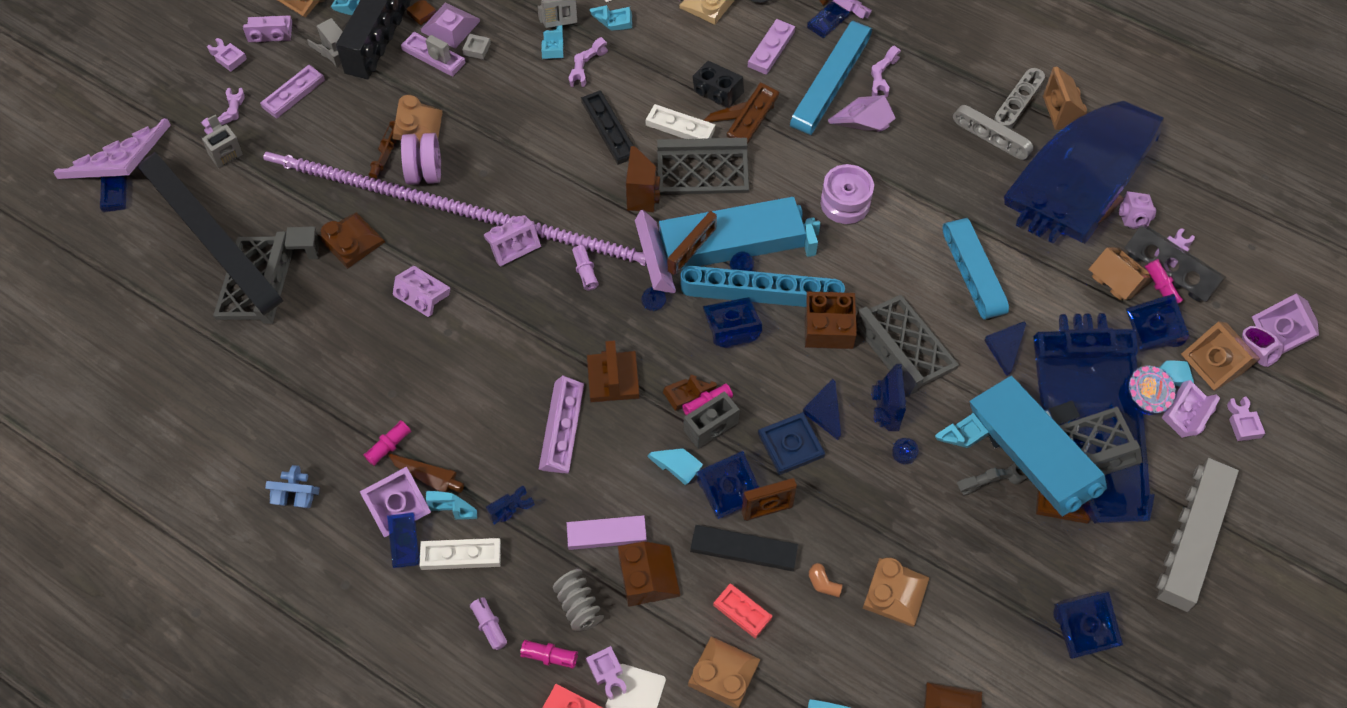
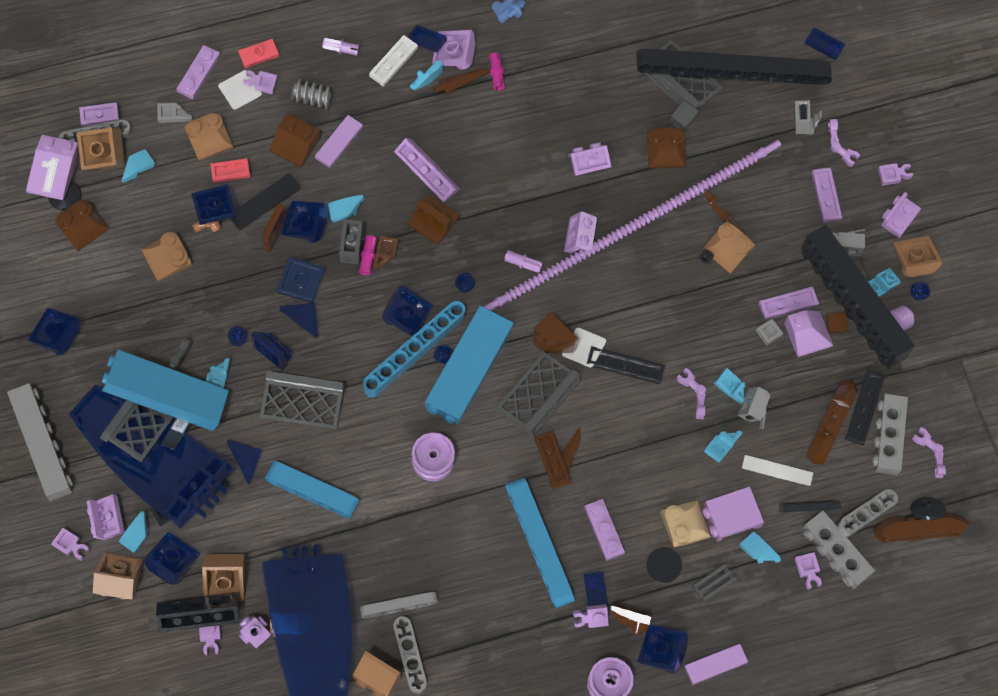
camera: 125 degrees right, 10 degrees up
(117, 157) = (848, 59): lavender tile -> none
(421, 158) = (688, 220): lavender wheel -> none
(438, 49) = (781, 298): light grey plate -> none
(442, 134) = (706, 256): none -> black piece
(505, 506) = (399, 98): clear blue plate -> none
(549, 654) = (297, 62): dark pink pin -> none
(614, 170) = (584, 343): none -> white sticker
(654, 253) = (480, 297): lavender slope -> none
(679, 123) = (585, 407): white plate -> none
(692, 243) = (474, 321): reddish brown tile -> none
(718, 84) = (598, 461): black brick -> none
(801, 582) = (213, 204): none -> clear blue slope
(812, 229) = (432, 419): medium azure slope -> none
(830, 320) = (353, 363): reddish brown slope -> none
(865, 114) = (488, 529): lavender slope -> none
(879, 67) = (517, 578): lavender piece -> none
(1150, 390) = (136, 501): clear blue tile -> none
(1162, 280) = (192, 591): dark pink pin -> none
(1264, 344) = (100, 605): lavender rock -> none
(1289, 321) = (94, 639): lavender slope -> none

